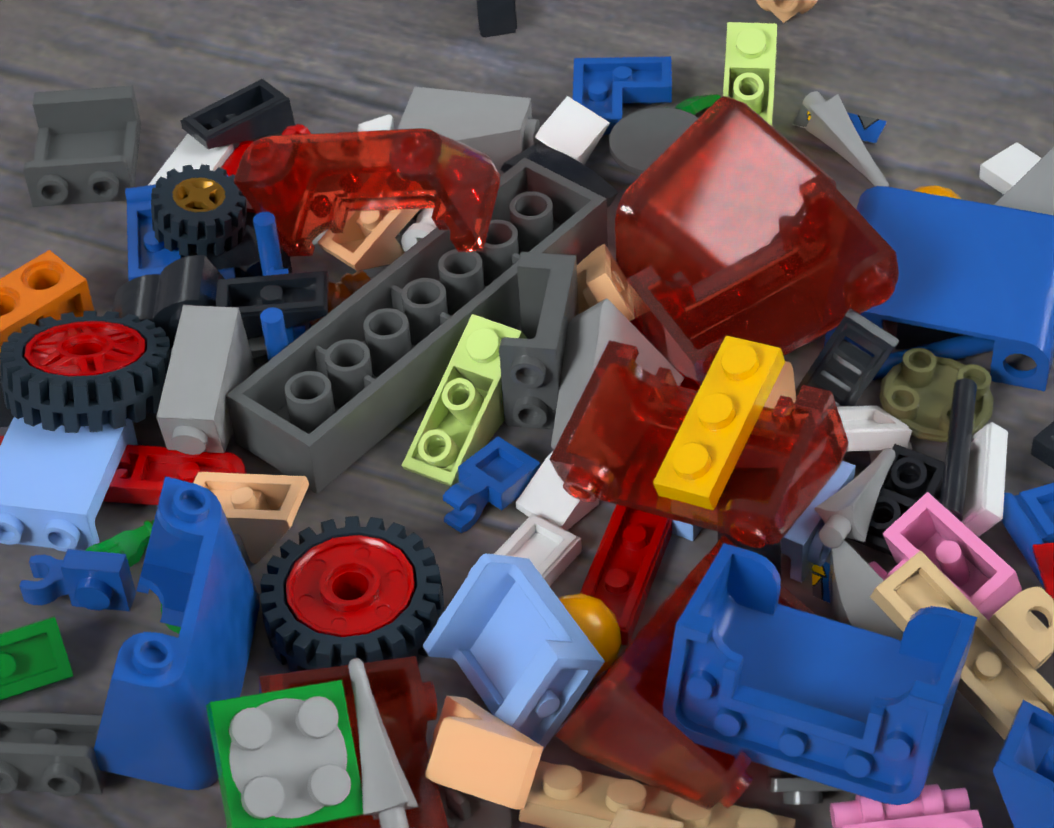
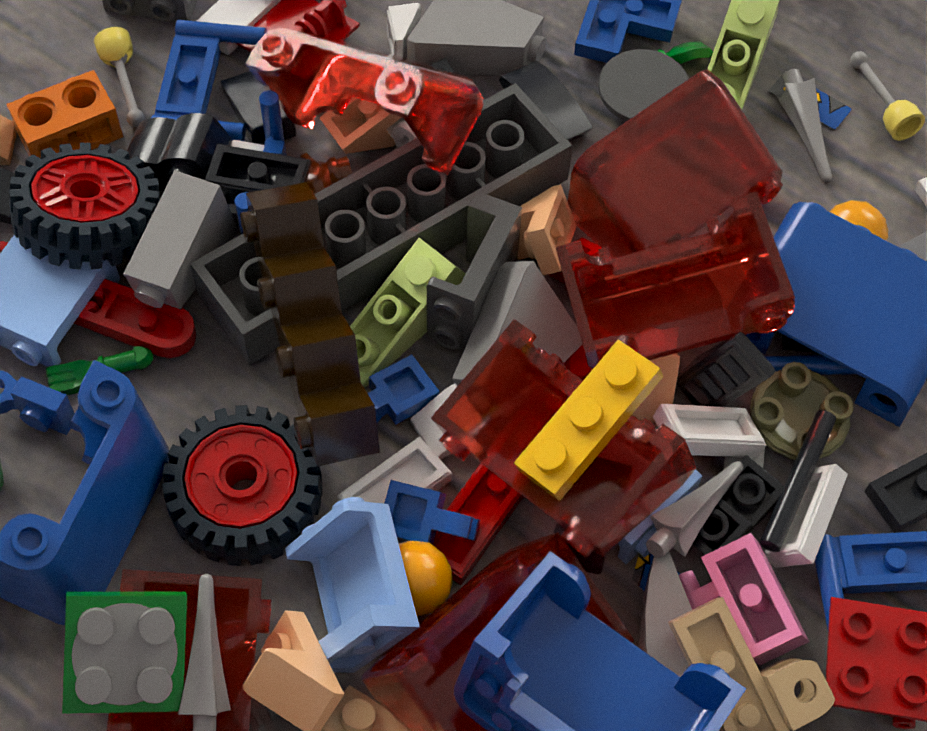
camera: 10 degrees right, 15 degrees up
(62, 235) = (115, 50): none -> hinge
(198, 211) = (217, 45): black wheel -> none
(257, 505) = (176, 371): light nougat slope -> none
(393, 430) = (313, 335): none -> dark brown brick
(570, 573) = (420, 514): none -> blue plate
(573, 130) = (571, 56): white slope -> none
(940, 113) = (901, 116): none -> light yellow hinge

